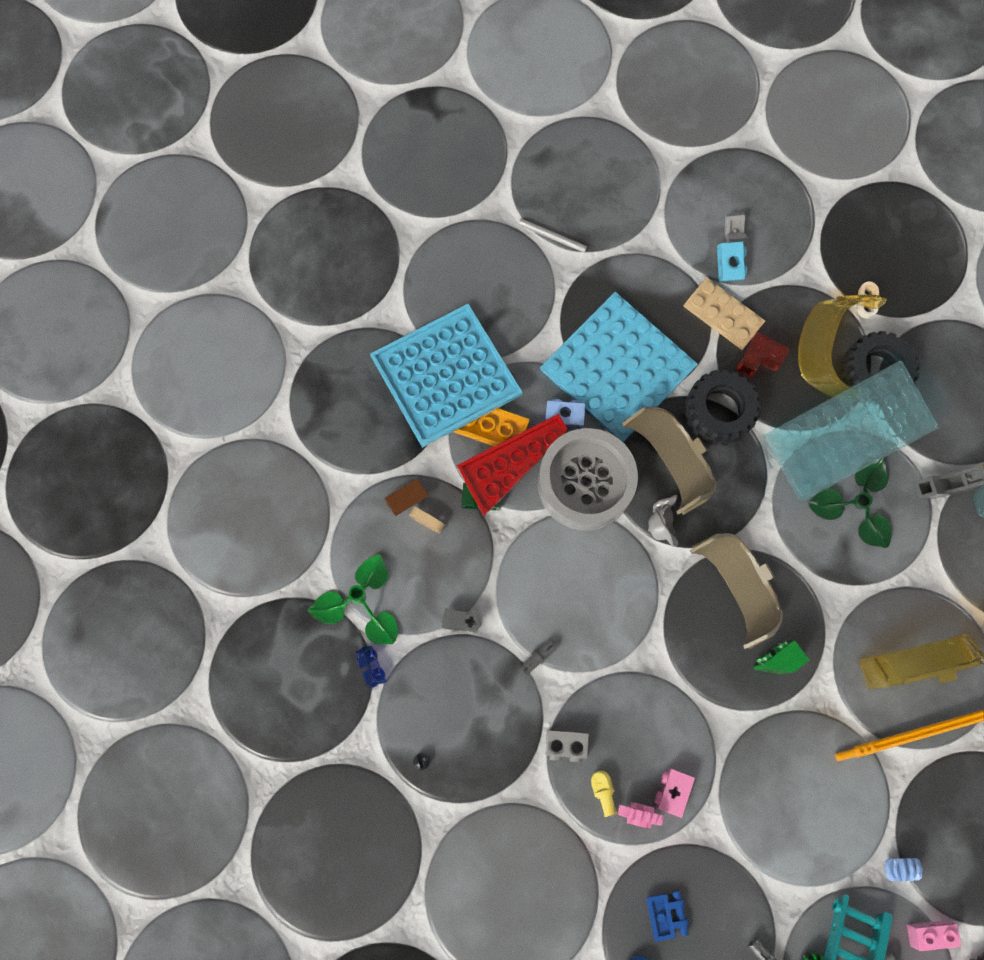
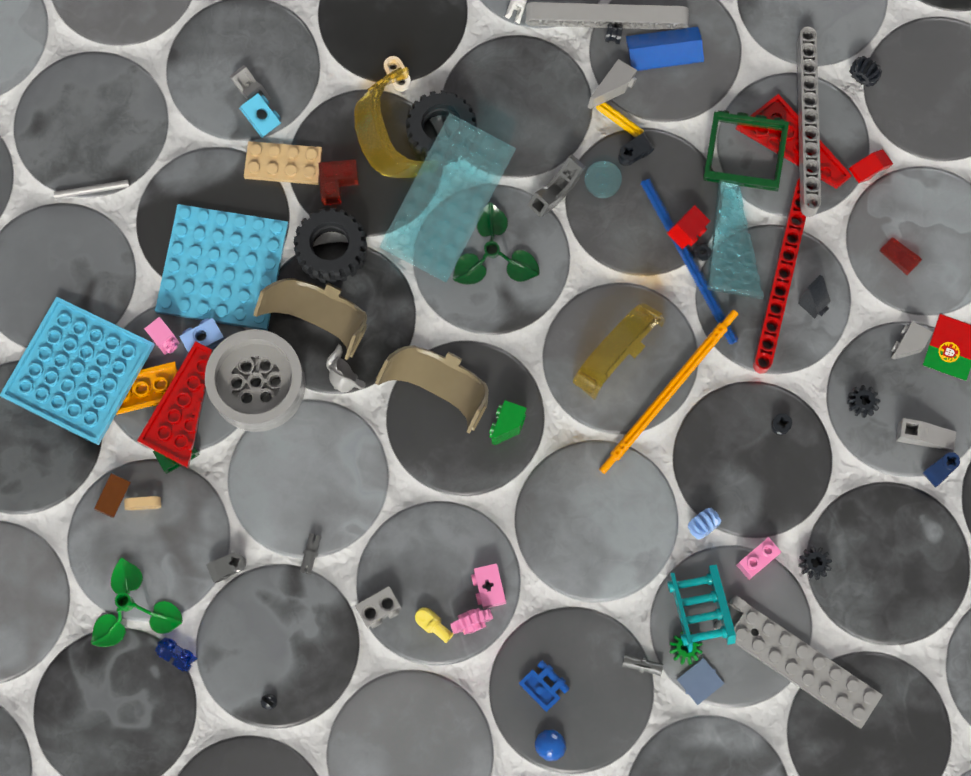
camera: 30 degrees left, 0 degrees up
(533, 391) = (162, 336): none -> bright pink brick

